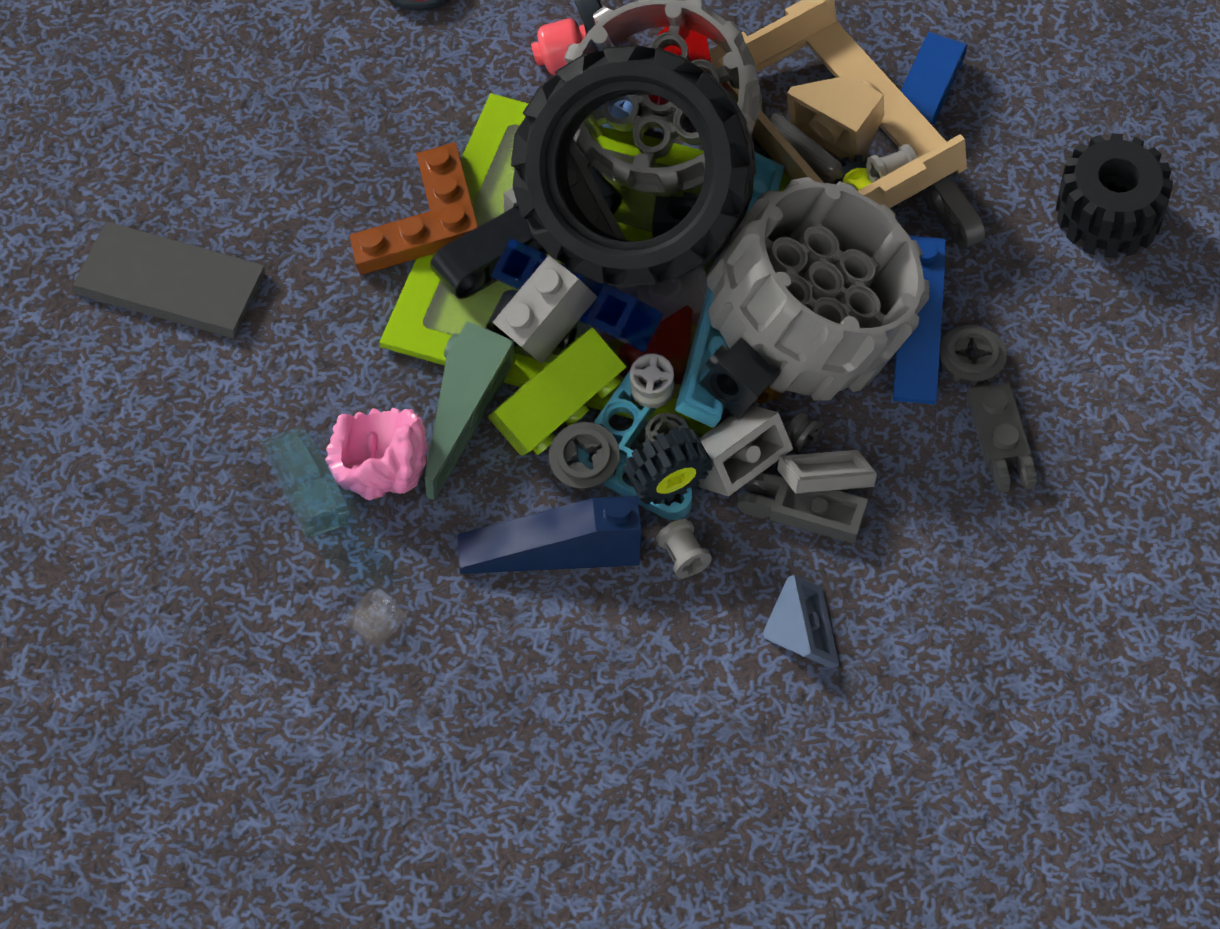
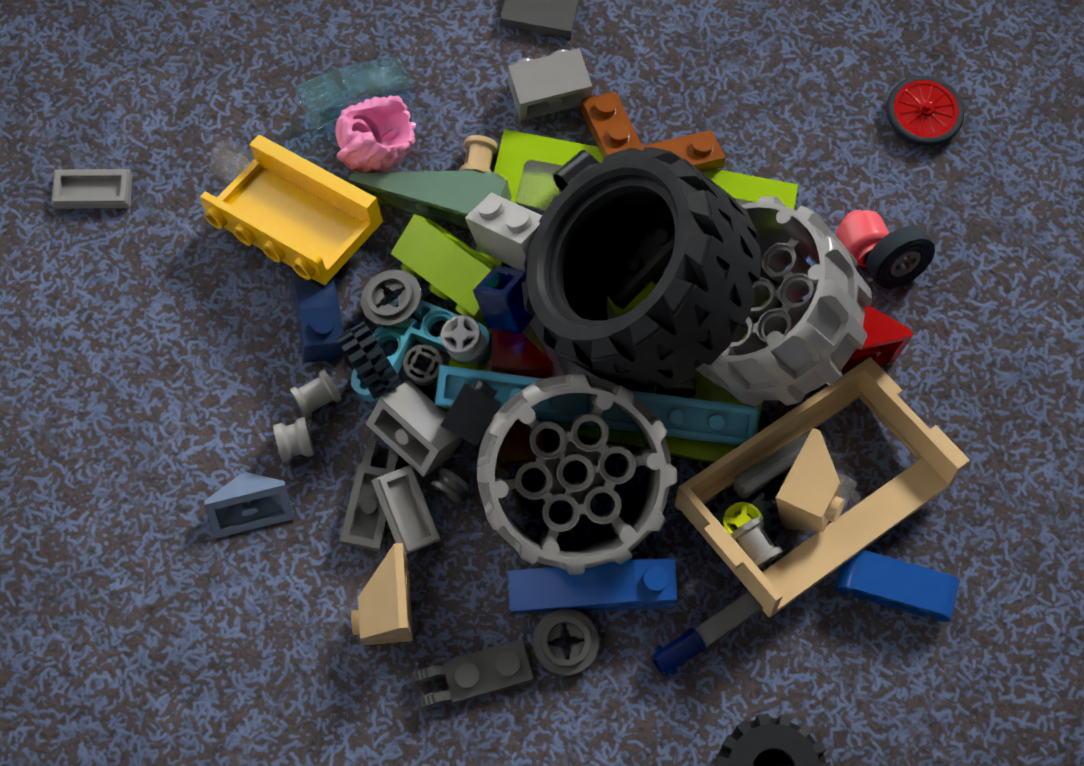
camera: 85 degrees right, 15 degrees up
(331, 291) = (549, 83): none -> light grey brick
(384, 771) = (91, 188): none -> light grey tile
(415, 369) = (479, 153): none -> tan bush
(462, 541) = (294, 212): none -> yellow panel
(736, 571) = (293, 440): none -> light grey wheel
(928, 485) = (385, 602): none -> tan slope
(991, 268) = (677, 652): none -> clear blue pin

